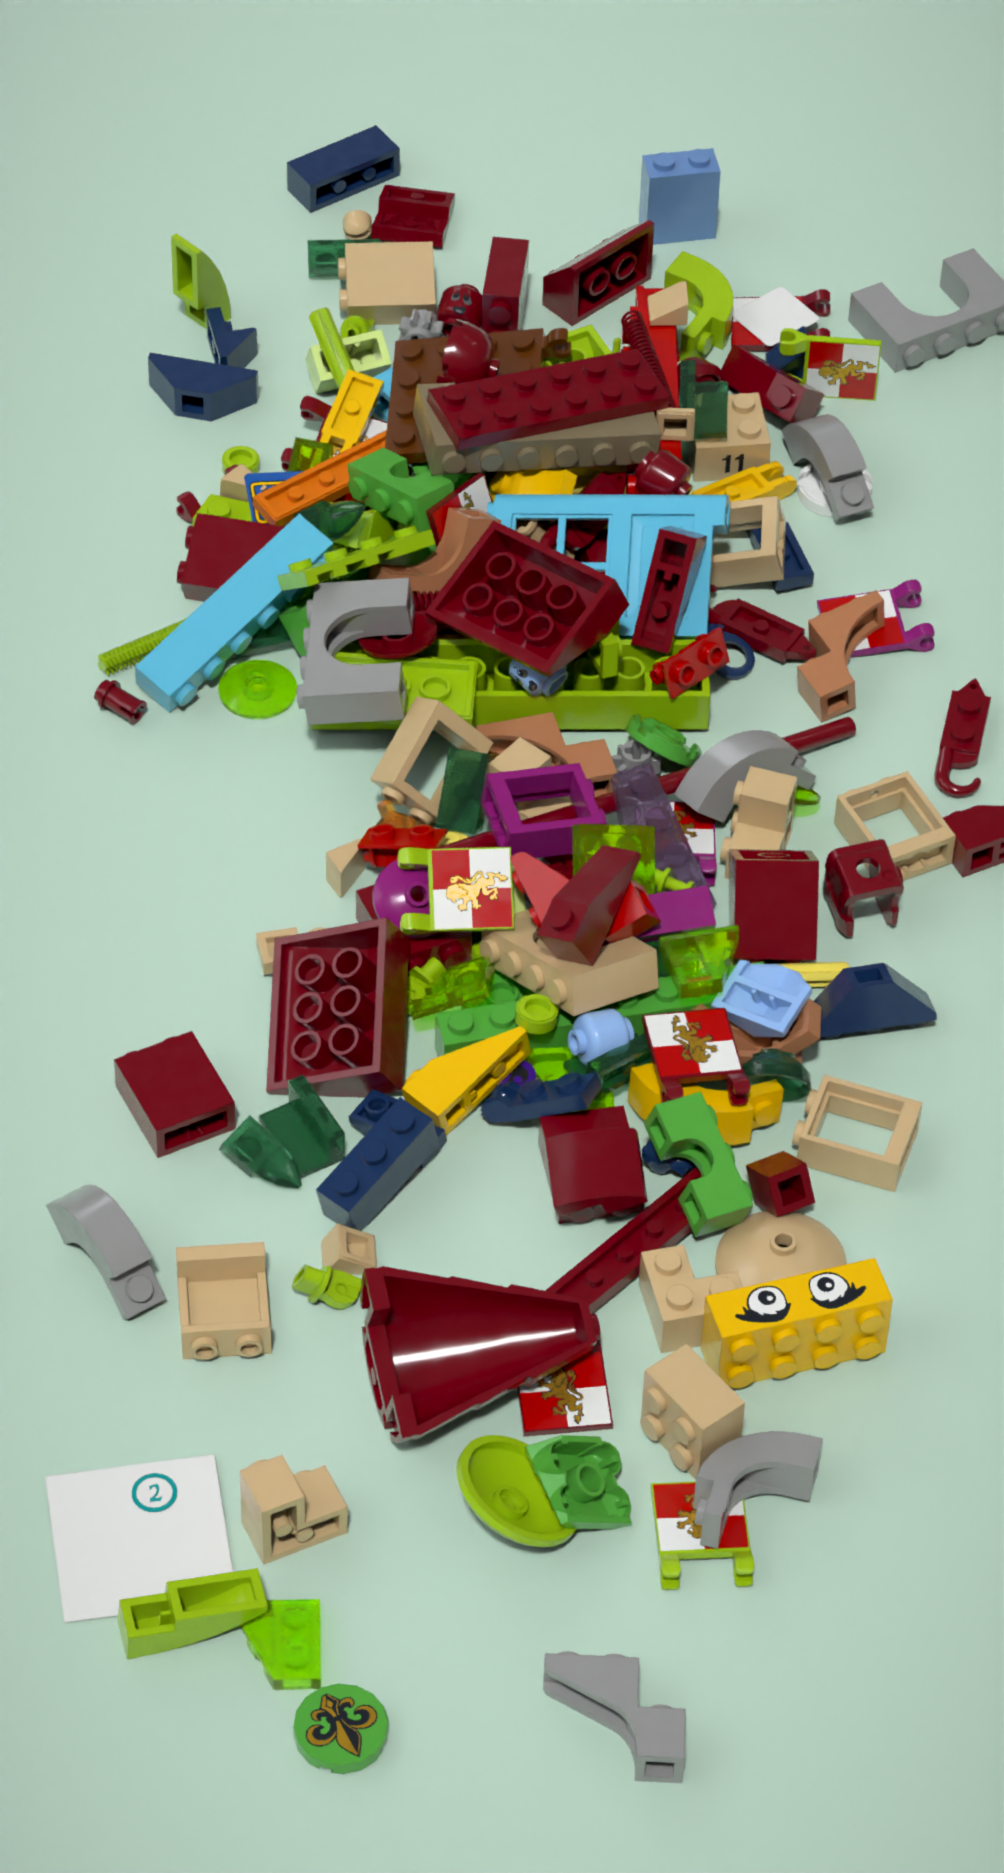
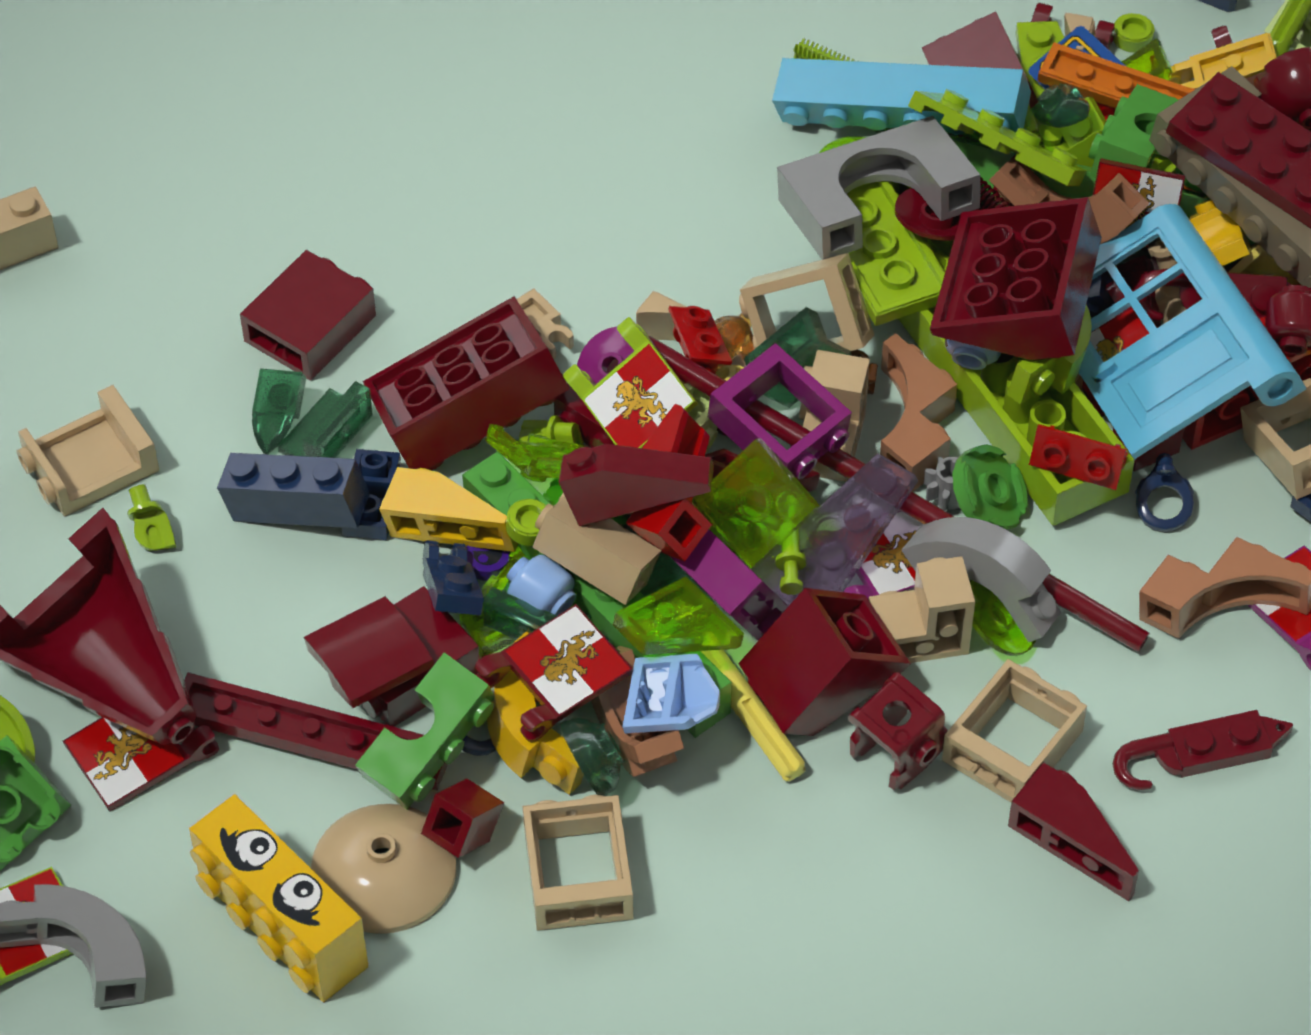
camera: 65 degrees right, 5 degrees up
(112, 696) = (760, 70): dark red pin -> none
(112, 1242) = (89, 334): light grey arch -> none
(348, 1250) = (206, 522): tan slope -> none
(668, 587) = (1152, 381): dark red slope -> none
(675, 1297) = (278, 788): tan brick -> none
(689, 1409) = (123, 849): tan brick -> none
(762, 629) = (1216, 496): dark red plate -> none
(870, 1000) = (759, 805): dark blue slope -> none

